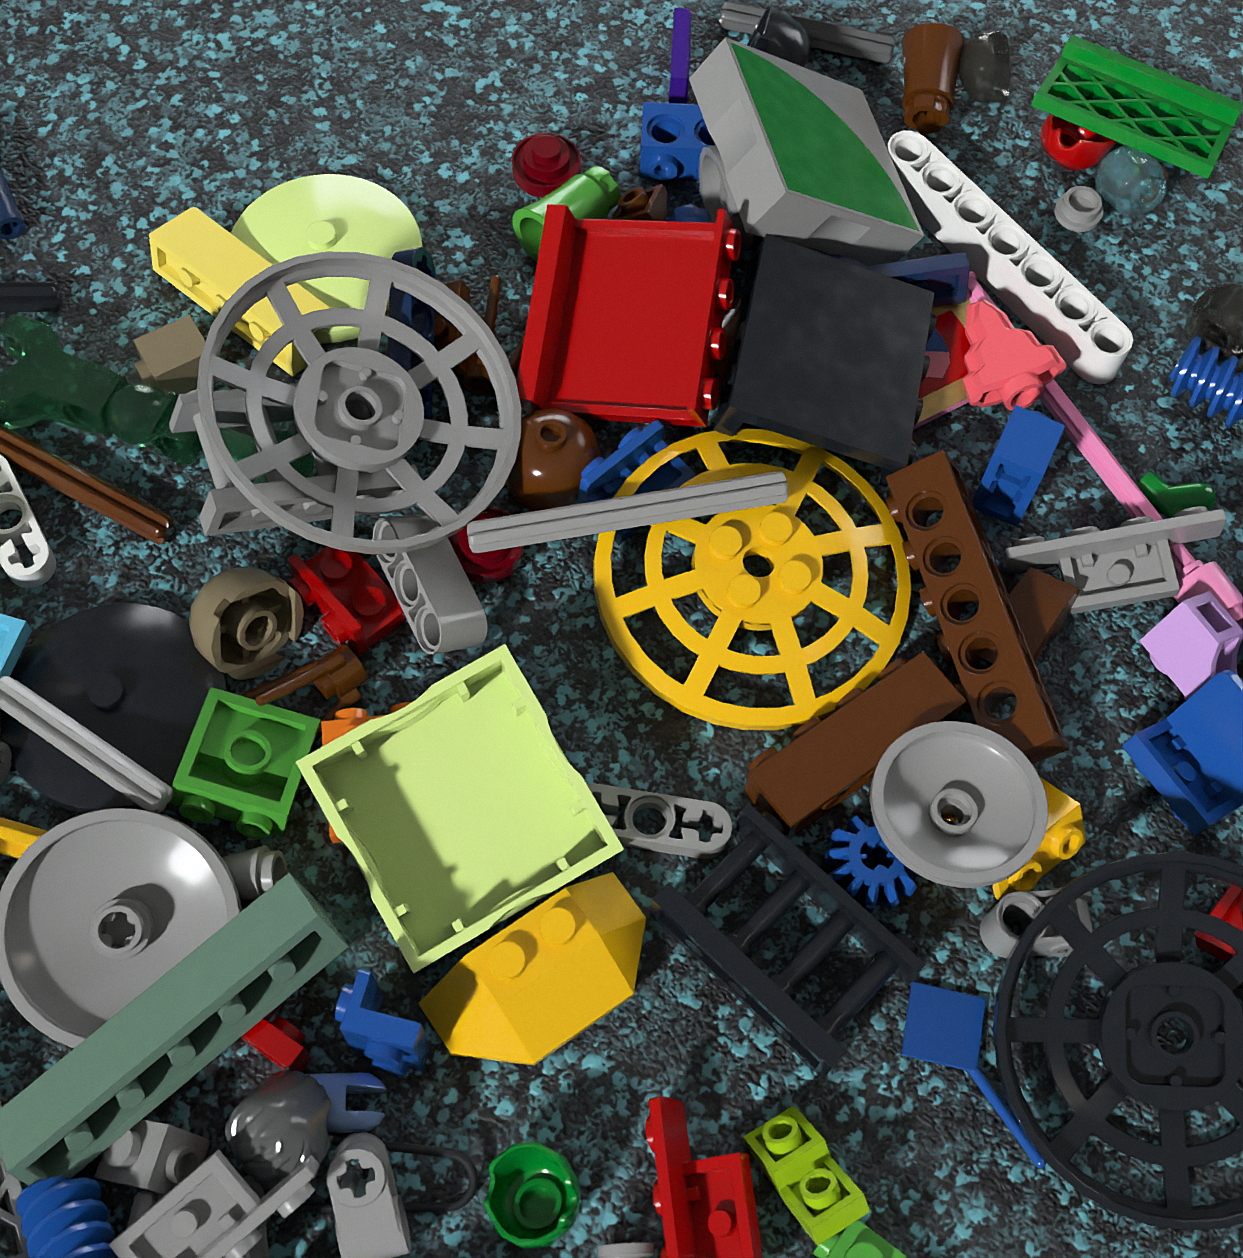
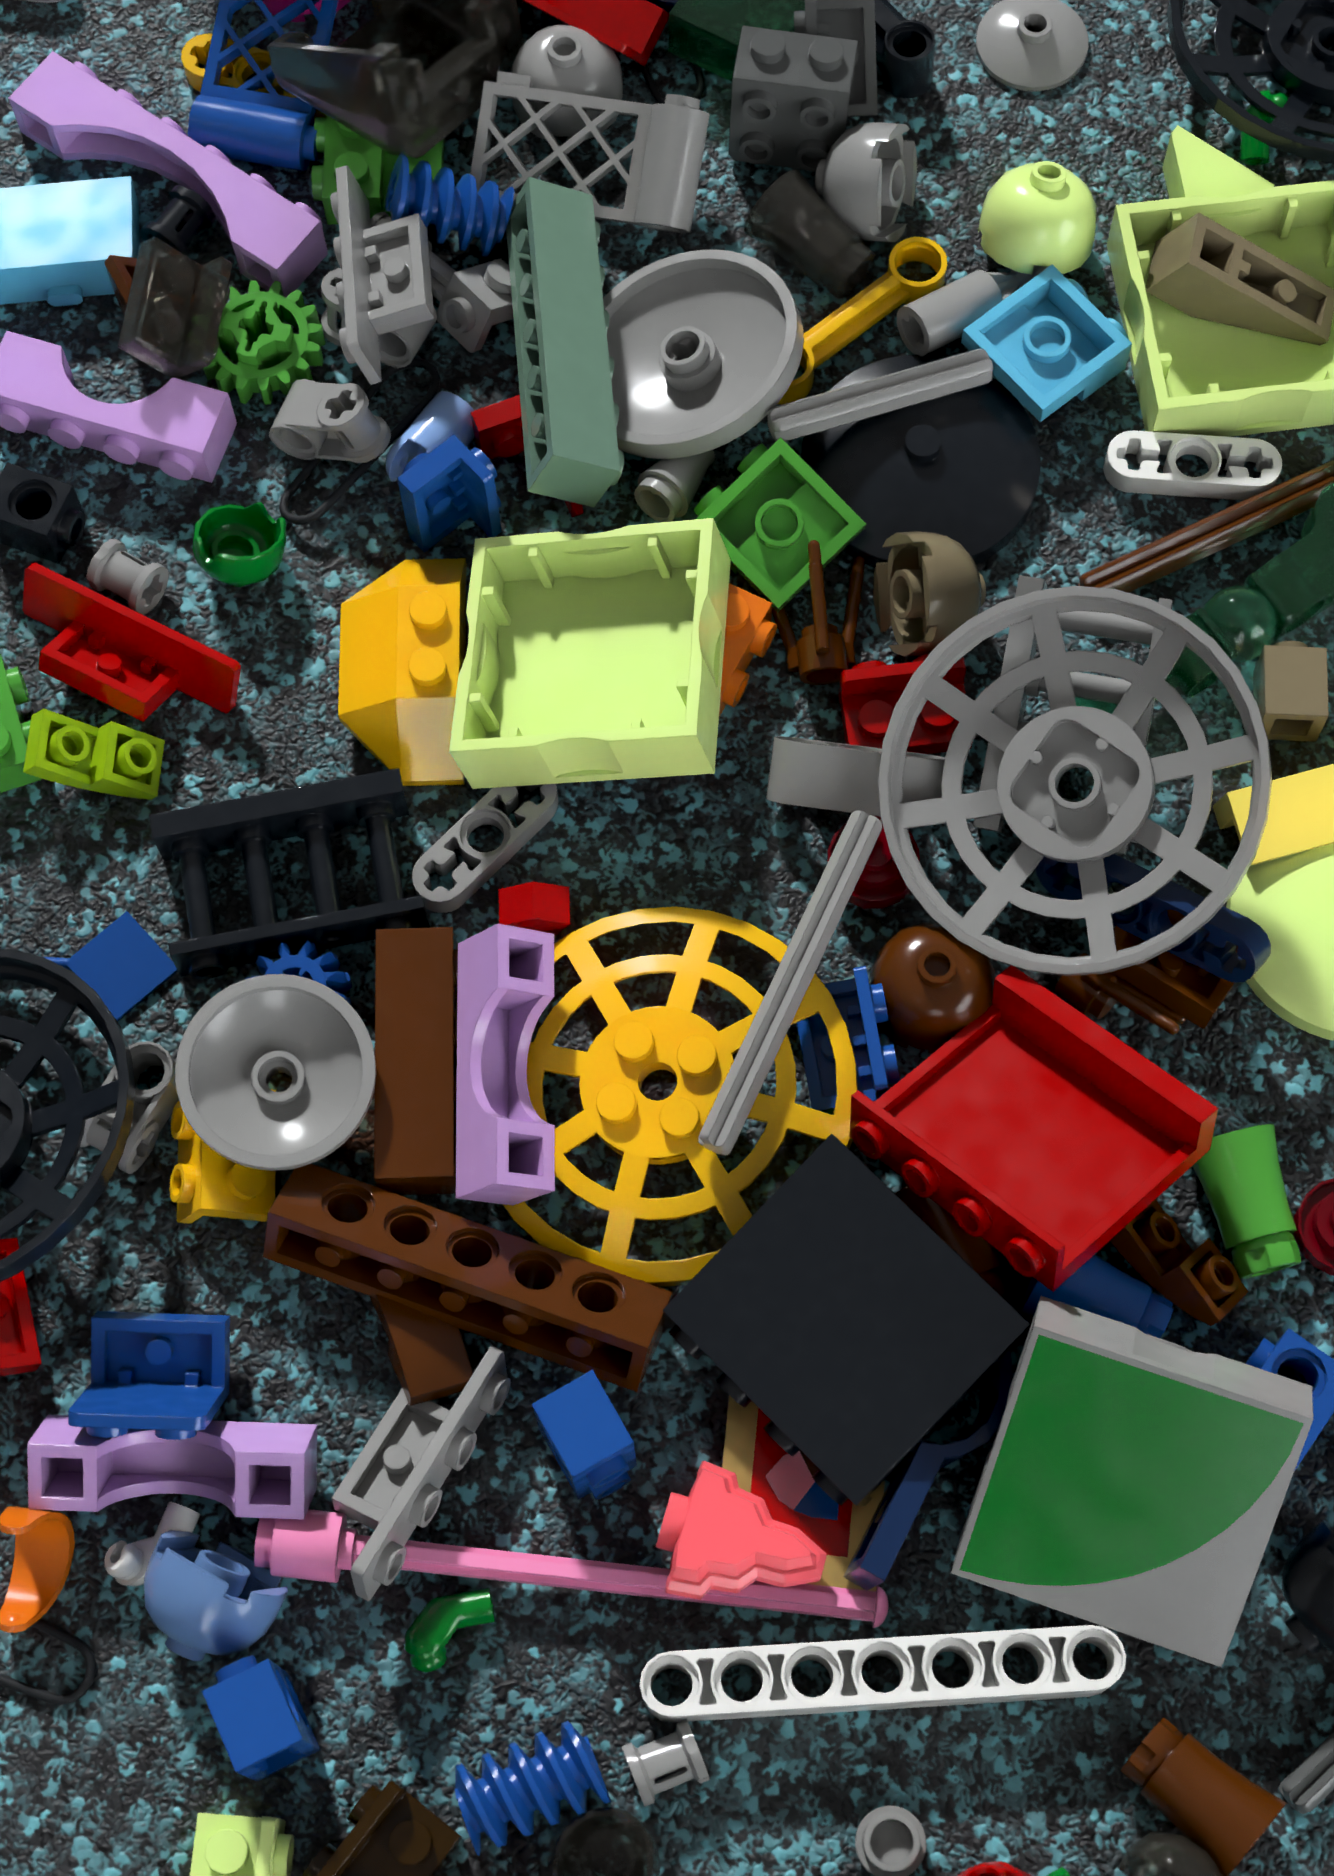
camera: 130 degrees right, 5 degrees up
(280, 1127) = (427, 384): dark grey hair -> none
(682, 742) = (535, 906): none -> red piece
(881, 627) = (500, 1140): none -> lavender arch
(1147, 332) = (665, 1763): none -> light grey bush

